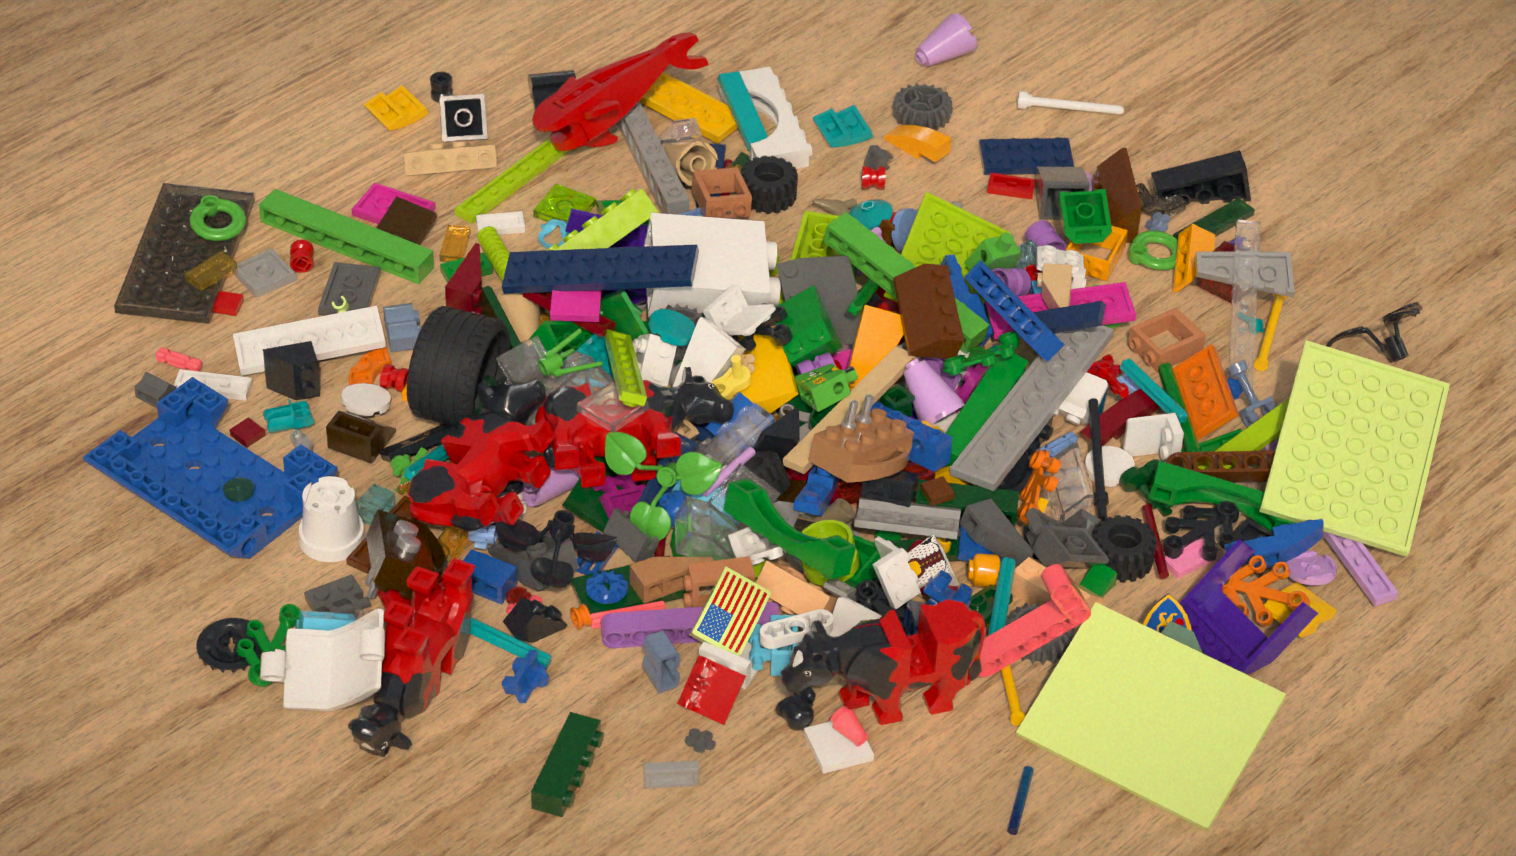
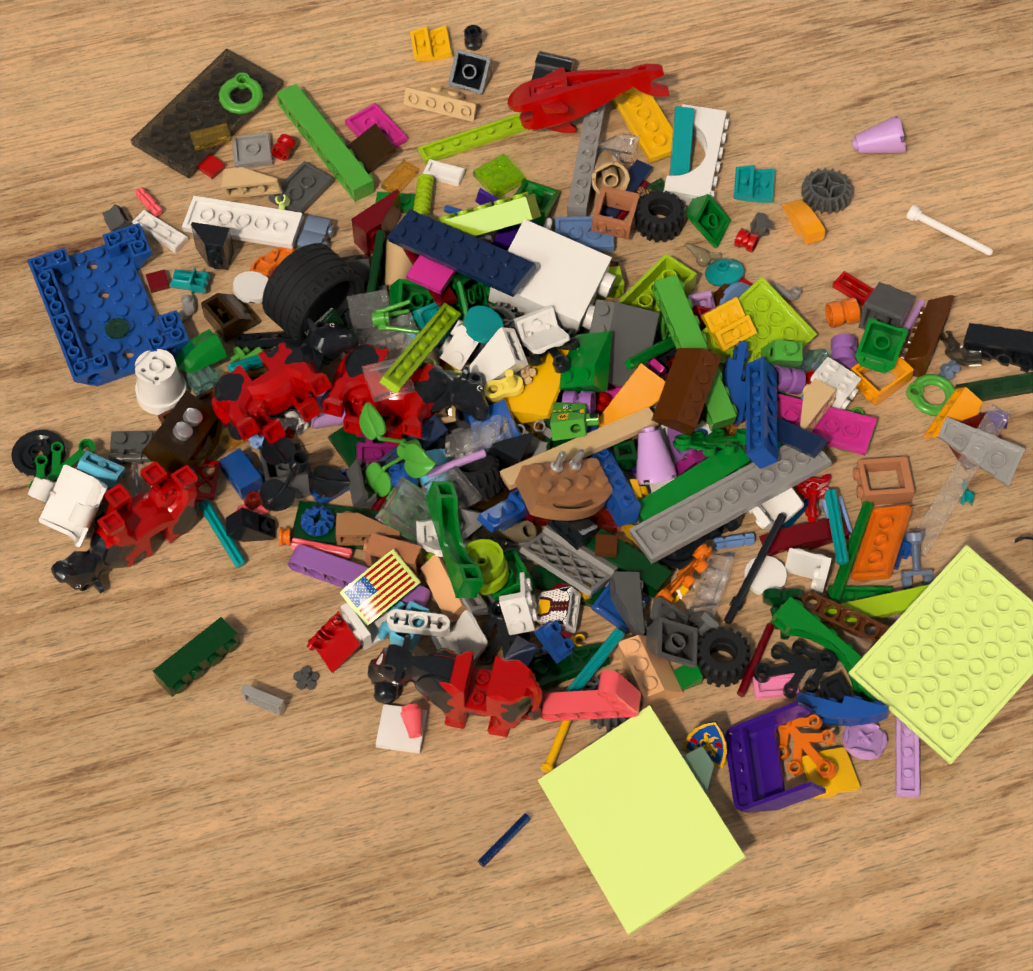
camera: 30 degrees right, 15 degrees up
(290, 300) = (248, 183): none -> tan slope
(364, 469) = (200, 352): none -> green slope
(528, 676) = (216, 570): blue hips -> none
(548, 228) = (473, 191): medium azure piece -> none
(661, 662) = (310, 603): sand blue brick -> none
(819, 170) = (708, 218): none -> green slope
(922, 245) = (728, 324): none -> yellow slope
(984, 569) = (601, 627): light orange head -> none
(1018, 207) = (846, 311): none -> orange wheel
(1023, 155) = (883, 265): dark blue plate -> none
(1261, 363) = (950, 533): yellow bar -> none

